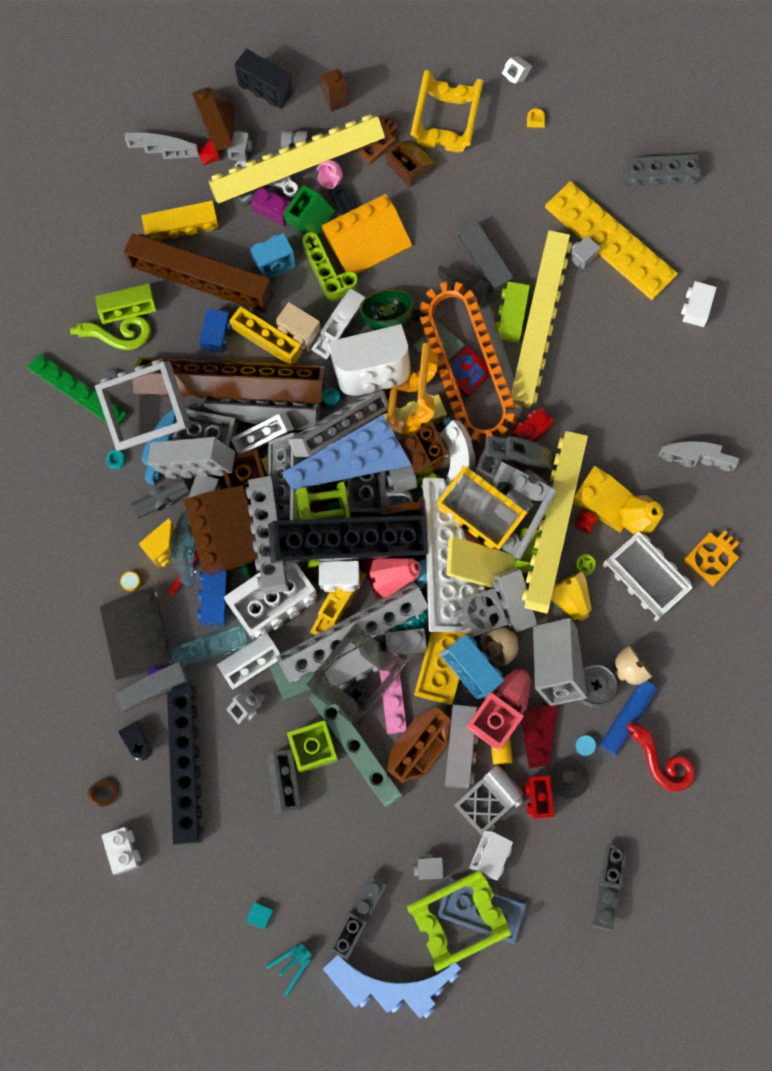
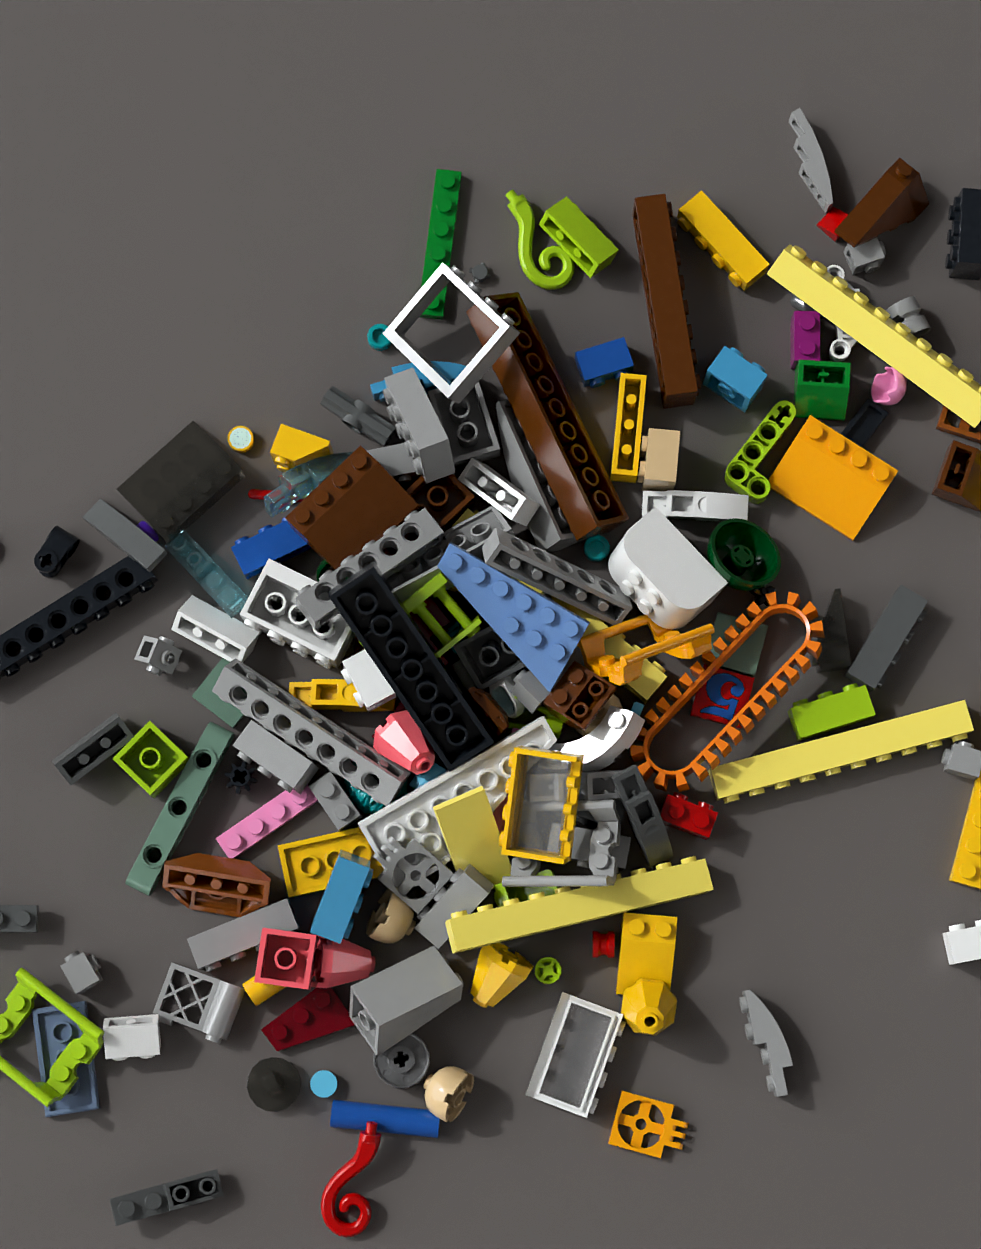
camera: 60 degrees right, 5 degrees up
(368, 649) = (291, 763): clear smoke piece -> none
(540, 797) = (229, 1060): red brick -> none

